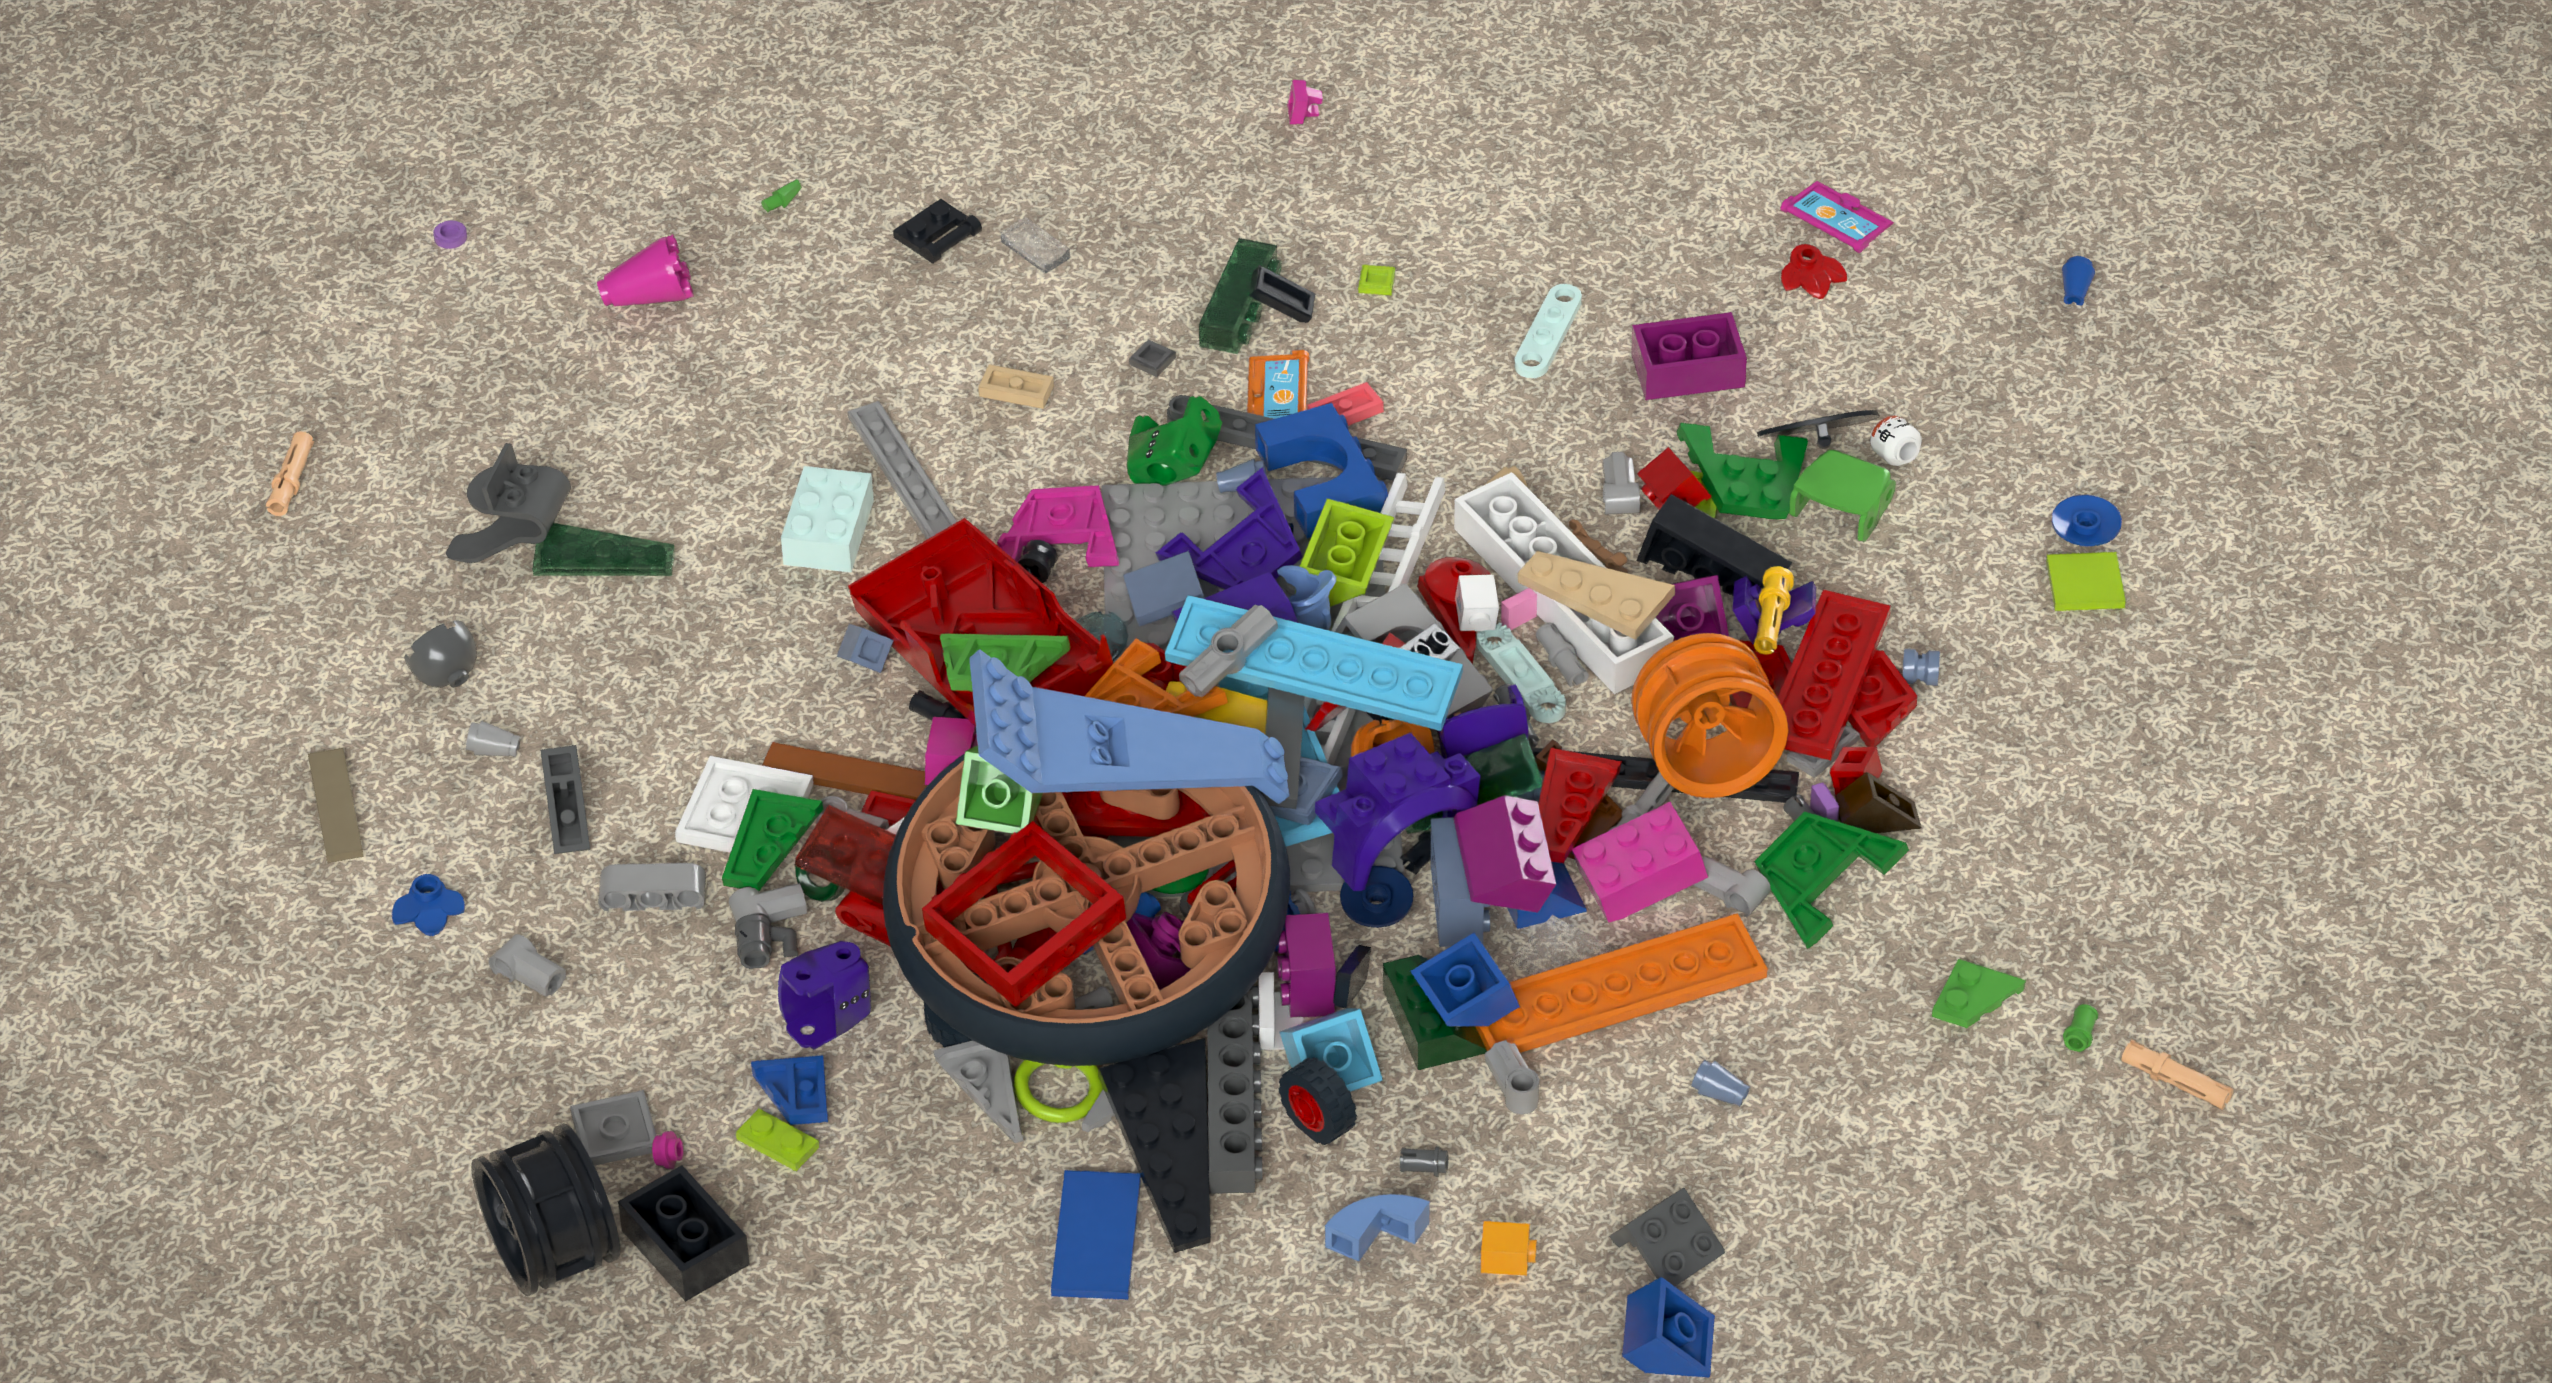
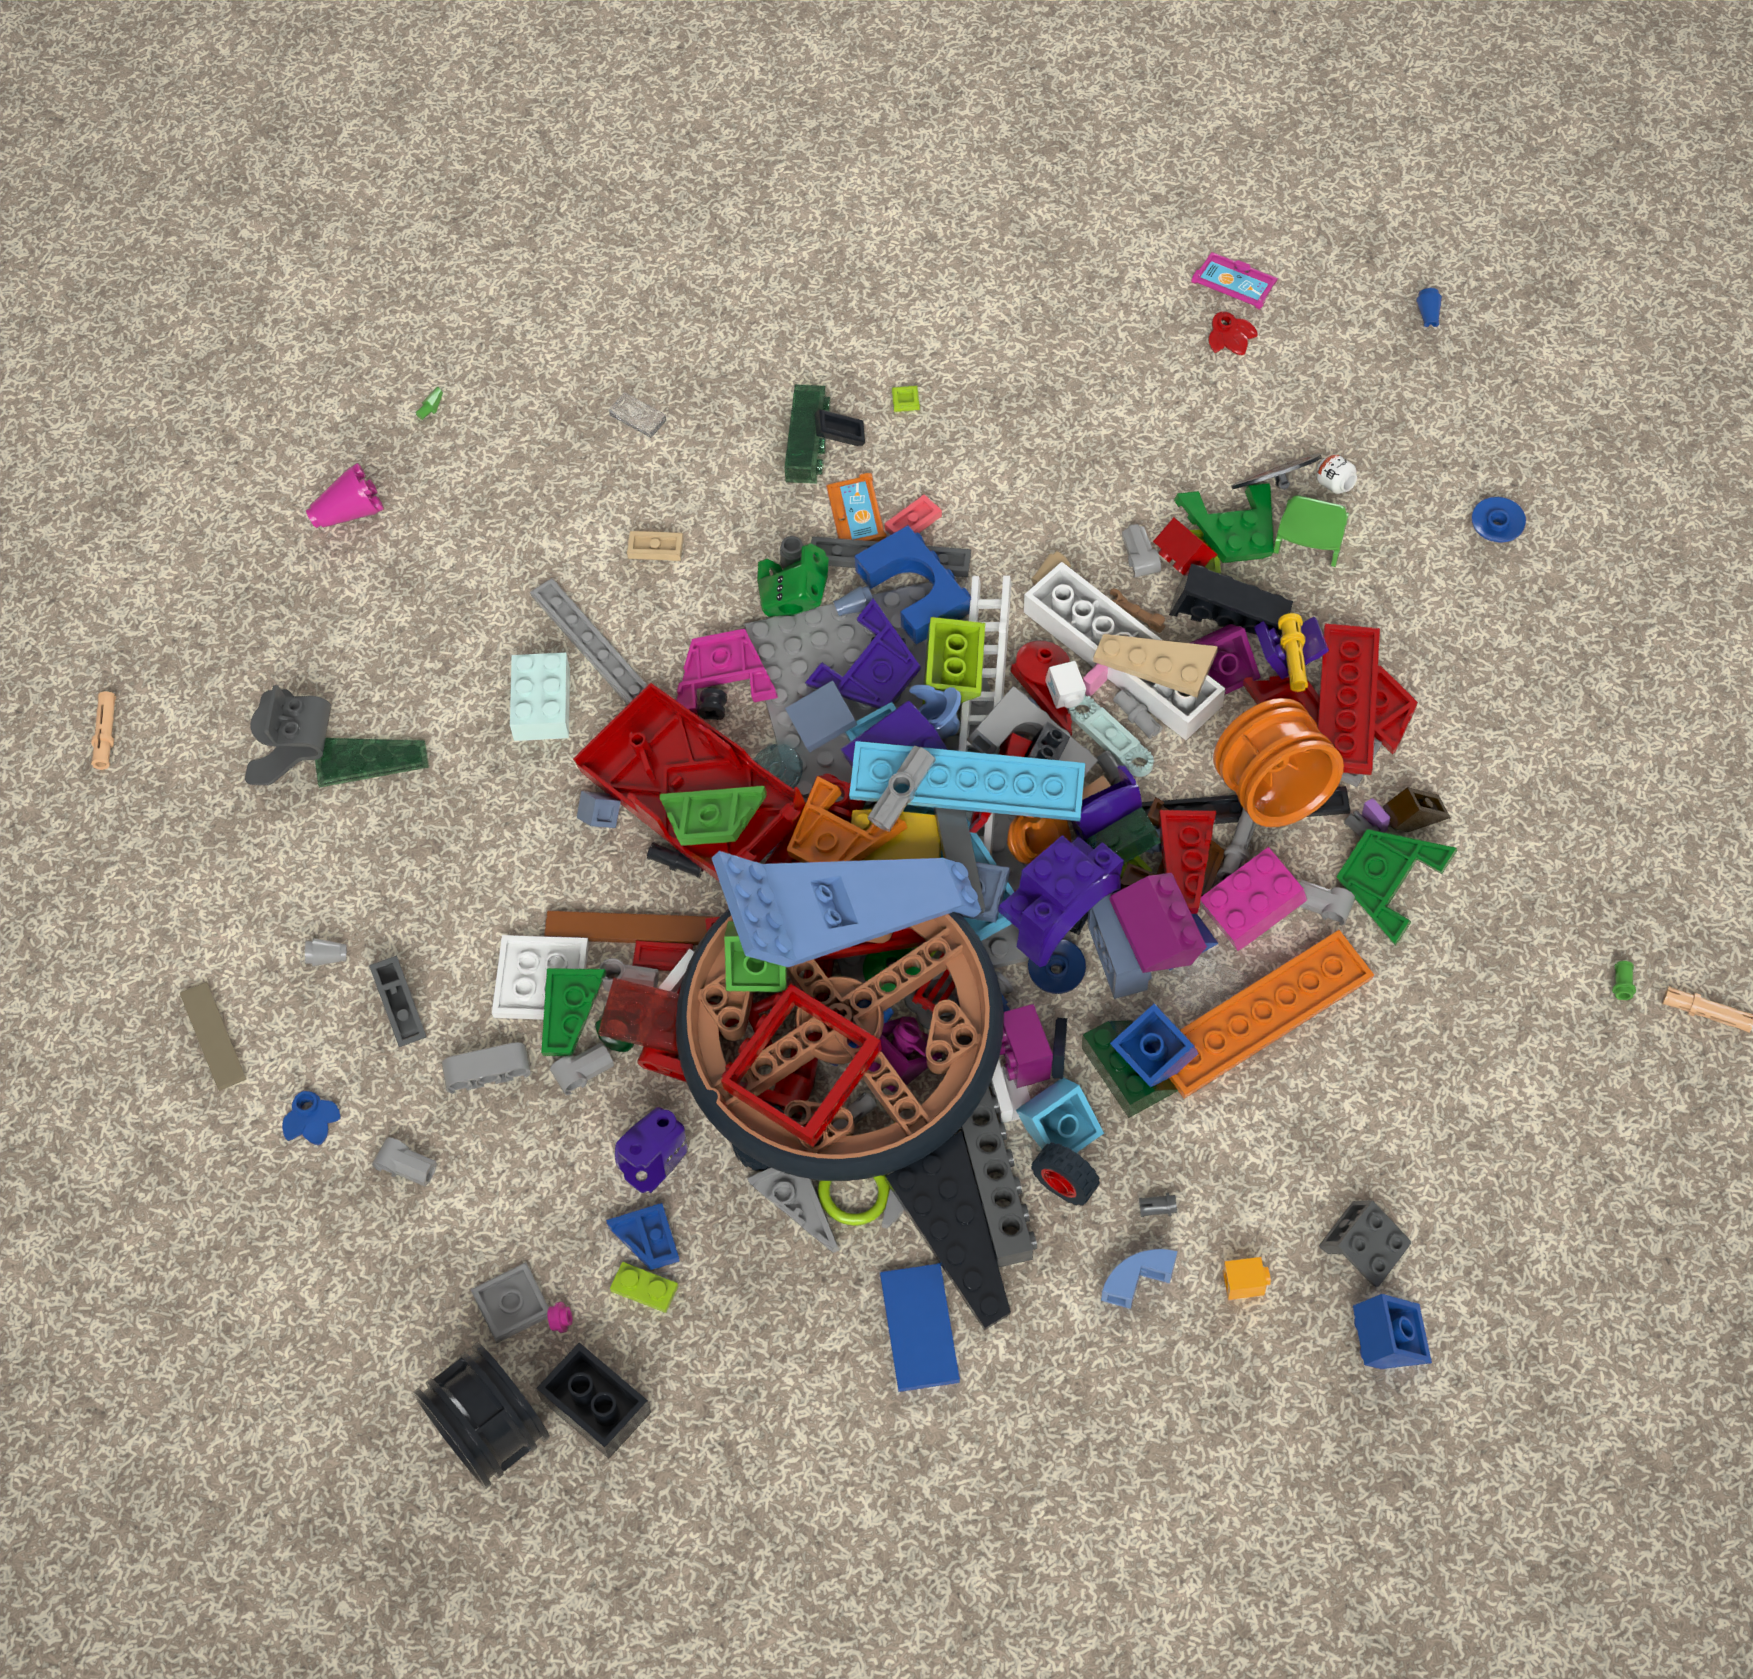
camera: 10 degrees left, 15 degrees up
(443, 656) = (268, 884): dark grey cylinder -> none
(450, 234) = (178, 485): medium lavender tile -> none
(755, 937) = (580, 1103): dark grey piece -> none
(931, 224) = (552, 409): black plate -> none
(946, 743) = (692, 896): dark pink hinge -> none
(1152, 358) = (752, 499): flat silver tile -> none
(1300, 102) = (809, 251): dark pink tile -> none
(1514, 1077) = (1207, 1112): light grey piece -> none
(1548, 331) = (1047, 421): light aqua plate -> none
(1688, 356) = (1162, 428): magenta brick -> none
(1720, 1084) = (1365, 1087): sand blue cone -> none
(1852, 764) = (1390, 778): red brick -> none
(1921, 667) = (1413, 674): sand blue wheel -> none
(1973, 992) = (1533, 963): bright green wing -> none
(2085, 581) = (1511, 572): lime tile -> none

